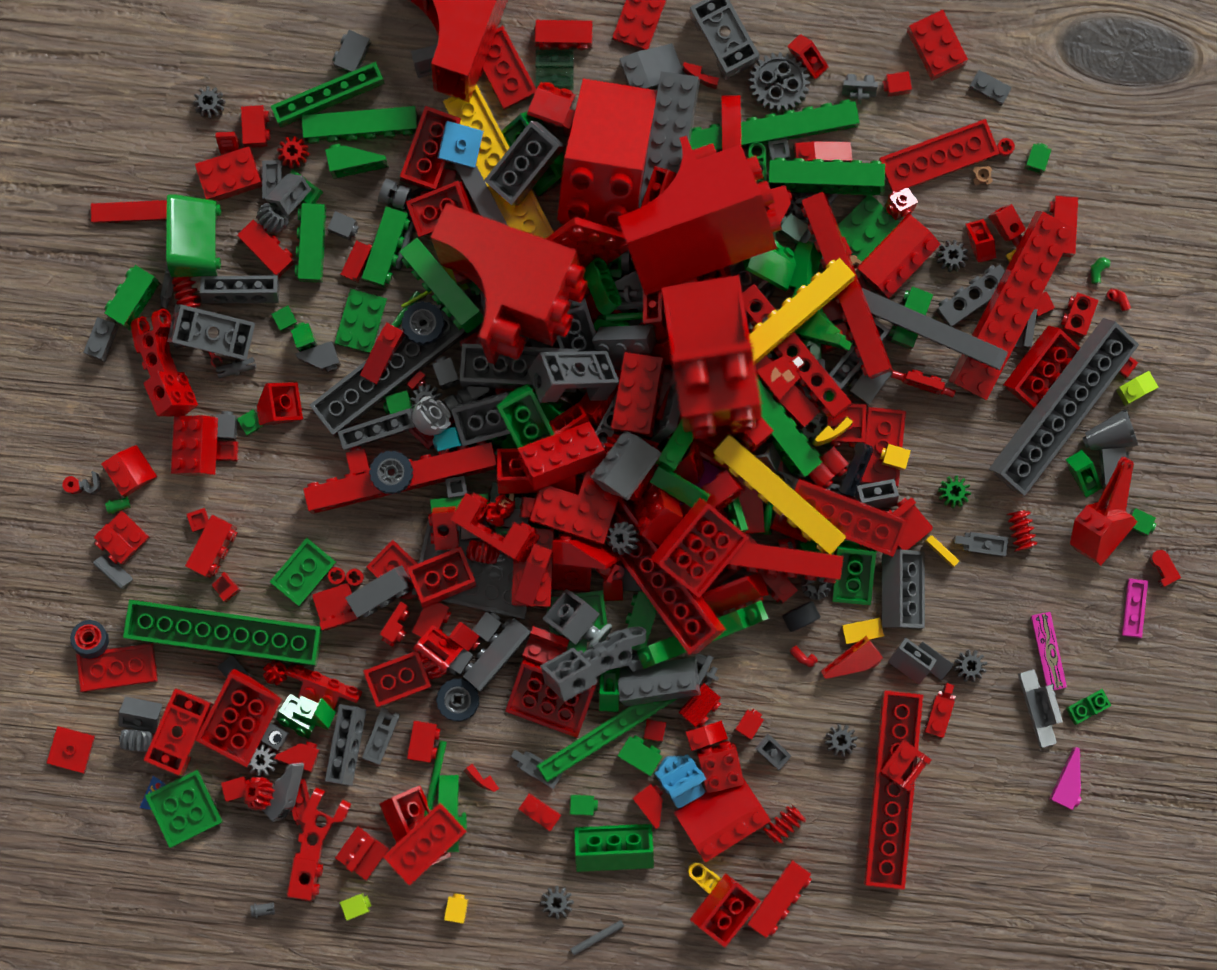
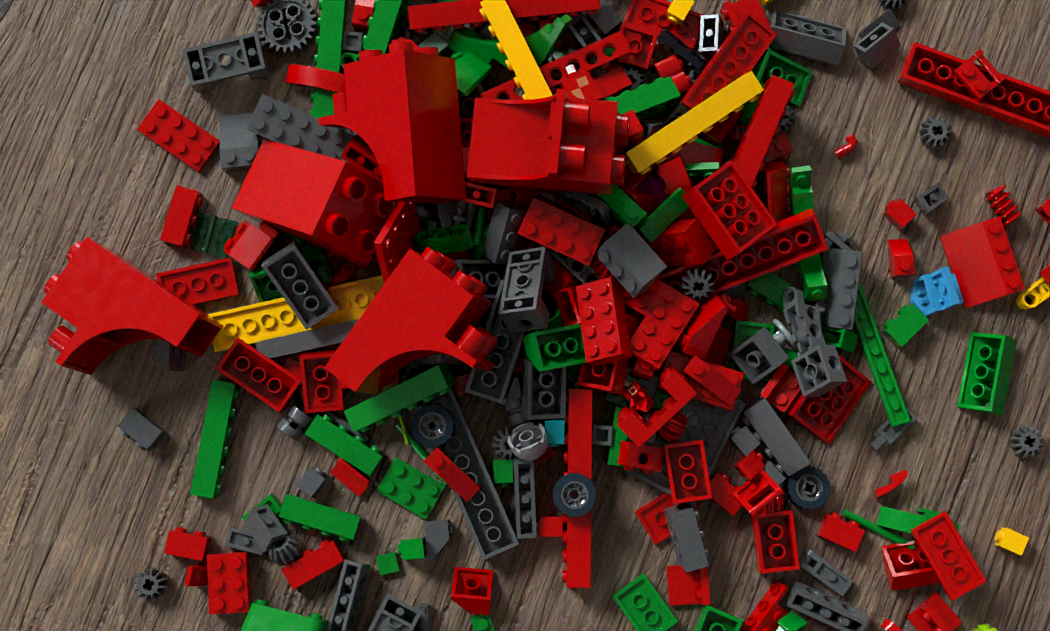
camera: 75 degrees left, 0 degrees up
(286, 156) = (221, 505): red gear -> none
(328, 94) = (176, 463): green brick -> none
(338, 581) = (662, 575): red bush -> none
(349, 161) = (249, 458): green slope -> none
(350, 581) = (660, 553): red bush -> none
(393, 629) = (726, 531): red plate -> none
(416, 381) = (486, 447): red plate -> none
(446, 373) = (485, 416): dark grey brick -> none
(460, 144) = (263, 344): dark azure plate -> none
(539, 812) = (936, 435): red brick -> none
(548, 203) = (344, 274): none -> red arm
(583, 805) = (939, 392): green brick -> none
(650, 803) = (953, 327): red slope -> none
(654, 730) = (883, 305): red slope -> none
(695, 70) = (253, 99): red slope -> none
(700, 705) = (873, 260): red brick -> none
(720, 766) = (934, 250): red bracket -> none
(801, 616) = (809, 137): black tyre -> none
(829, 434) = (645, 62): yellow slope -> none
(856, 631) = (835, 85): yellow tile -> none
(856, 659) = (862, 99): red slope -> none
(941, 712) = (929, 32): red hinge -> none

